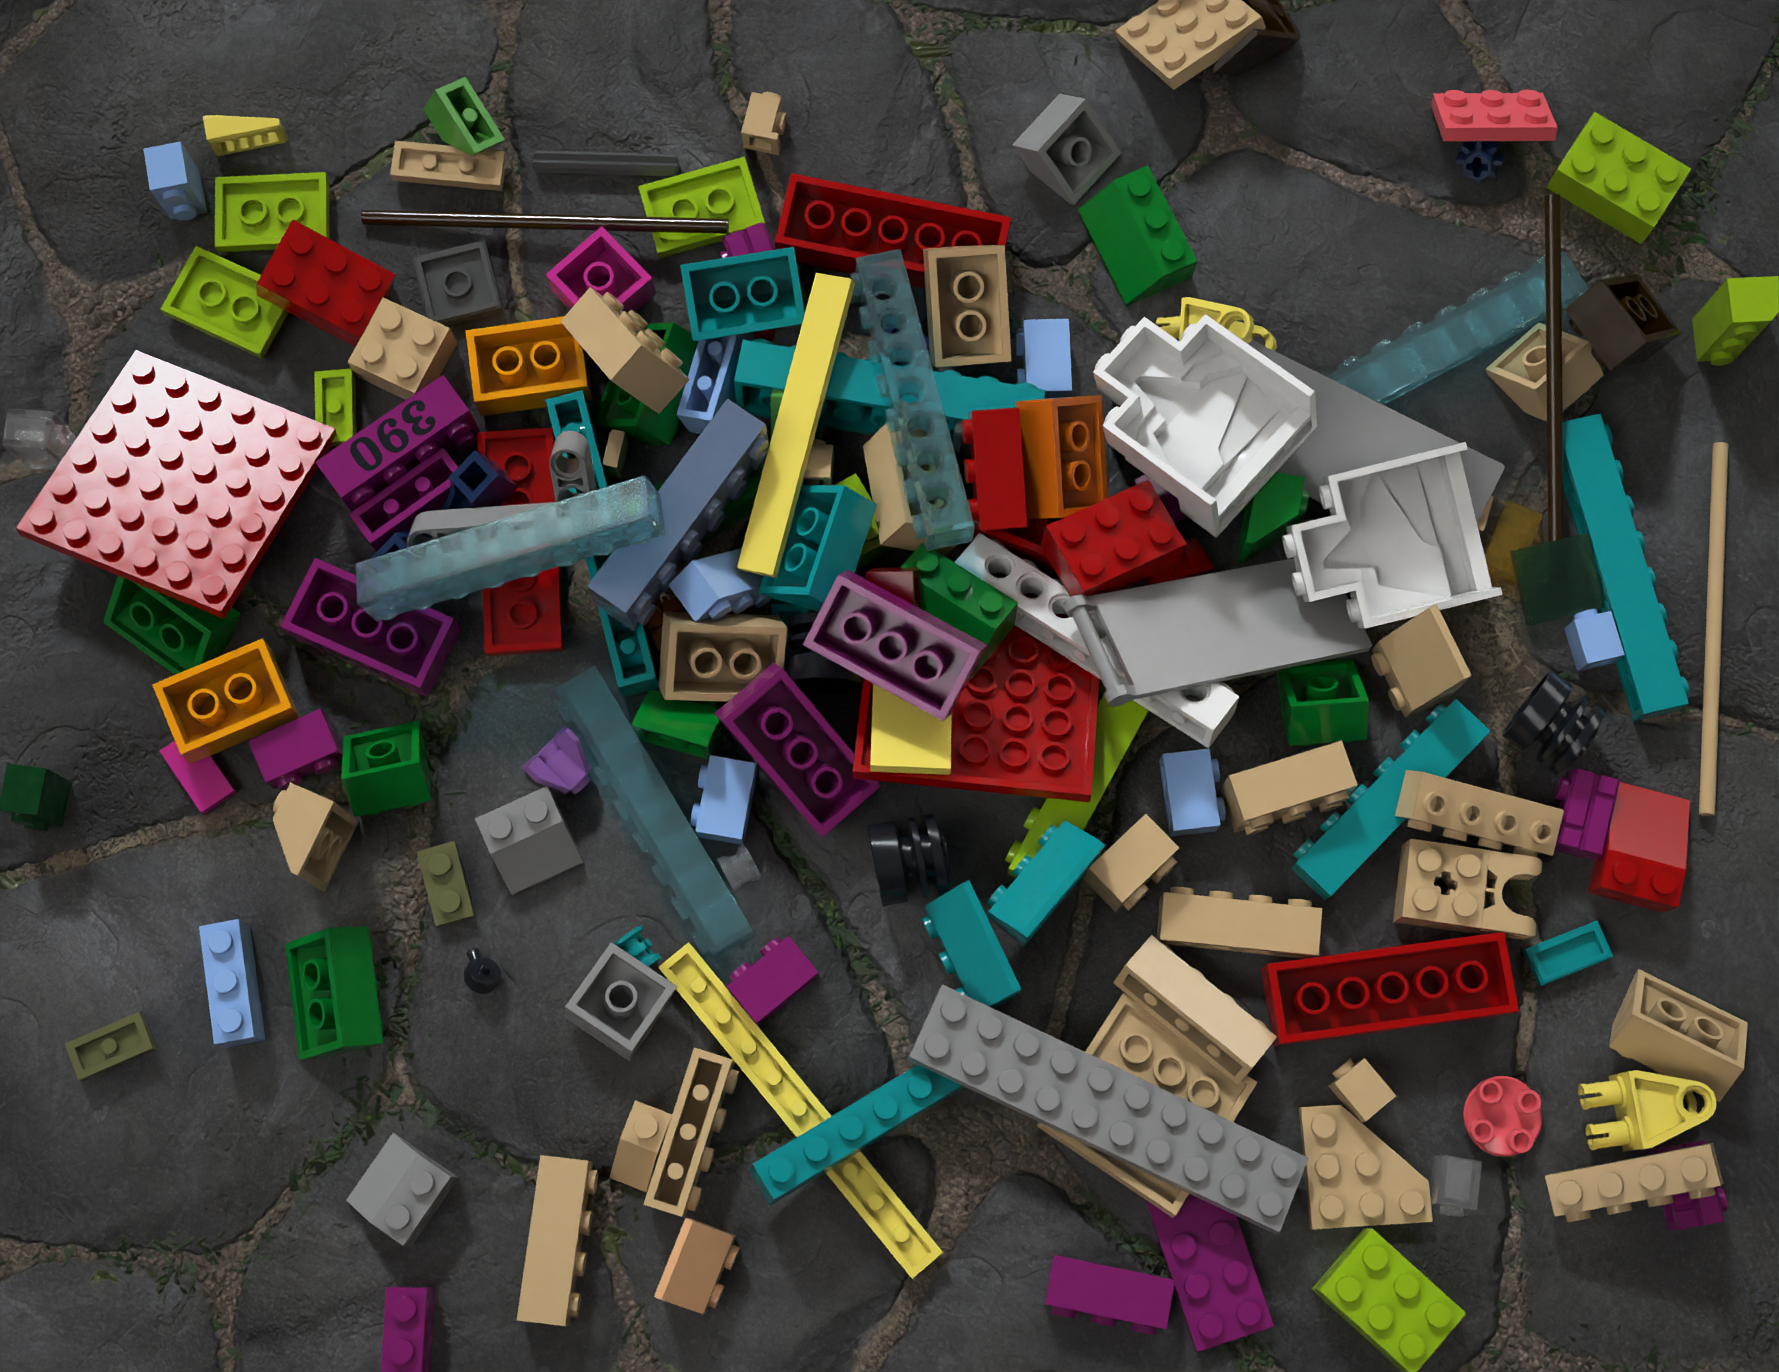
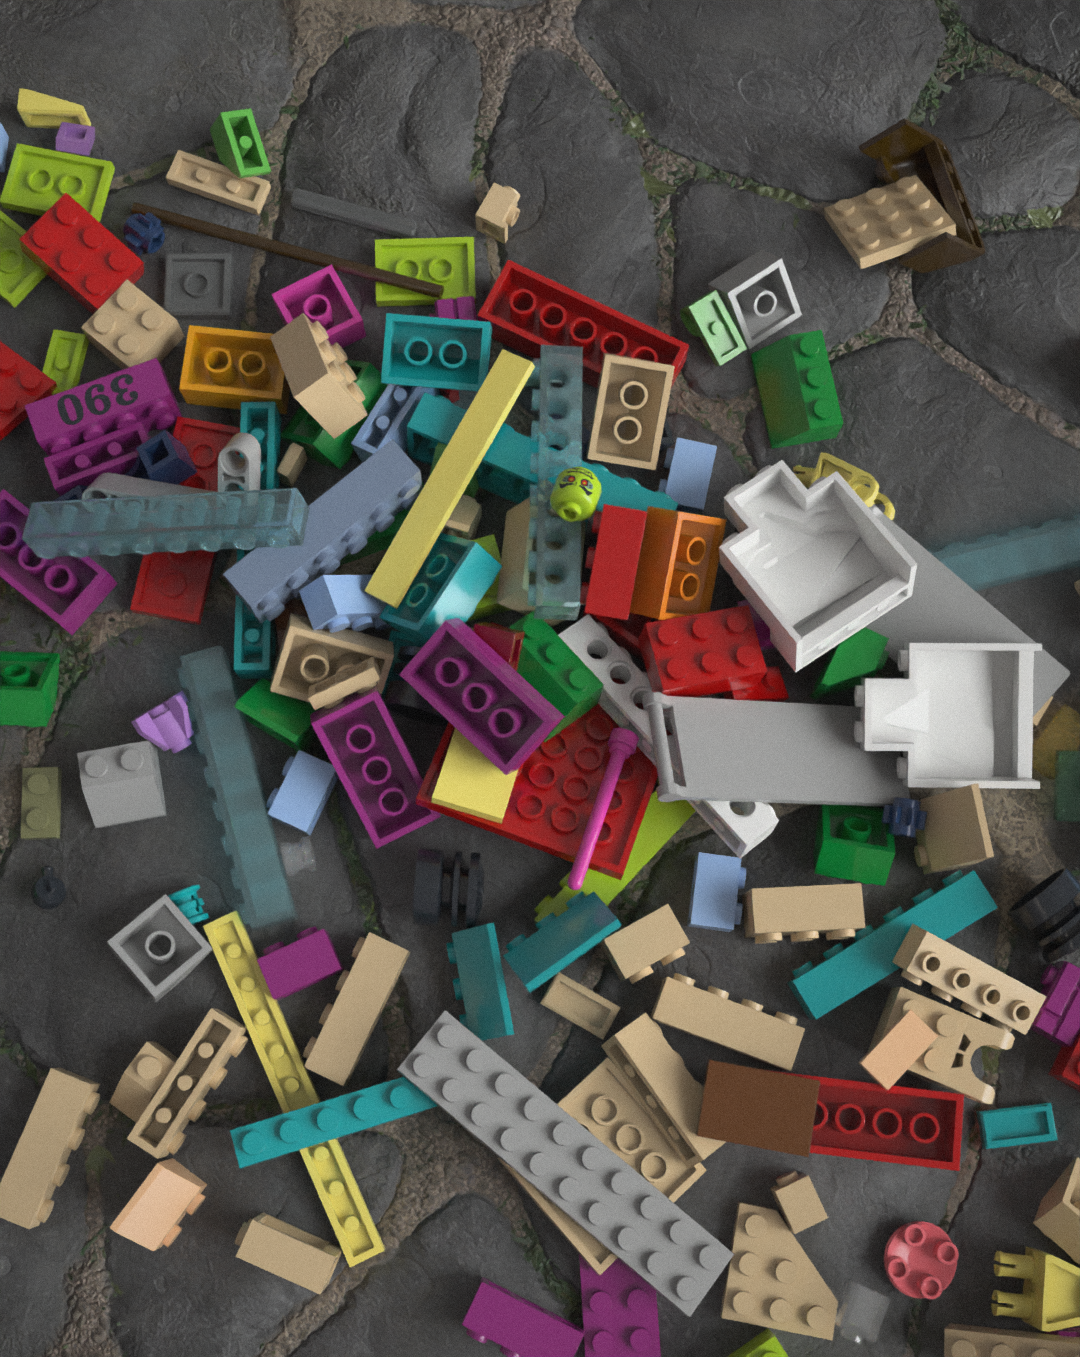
camera: 10 degrees right, 0 degrees up
(277, 156) = (75, 138): none -> medium lavender plate
(383, 242) = (144, 233): none -> dark blue gear
(754, 662) = (333, 689): none -> tan plate
(843, 1277) = (288, 1252): none -> tan window
(845, 1010) = (356, 1009): none -> tan brick
(938, 406) = (575, 494): none -> lime head
(1027, 185) = (712, 322): none -> plate
(1052, 660) = (622, 745): none -> dark pink piece
(1079, 948) = (580, 1005): none -> tan tile
(1294, 1000) = (758, 1108): none -> reddish brown tile
(1369, 661) = (904, 817): none -> dark blue gear
(1424, 903) = (898, 1049): none -> light nougat tile

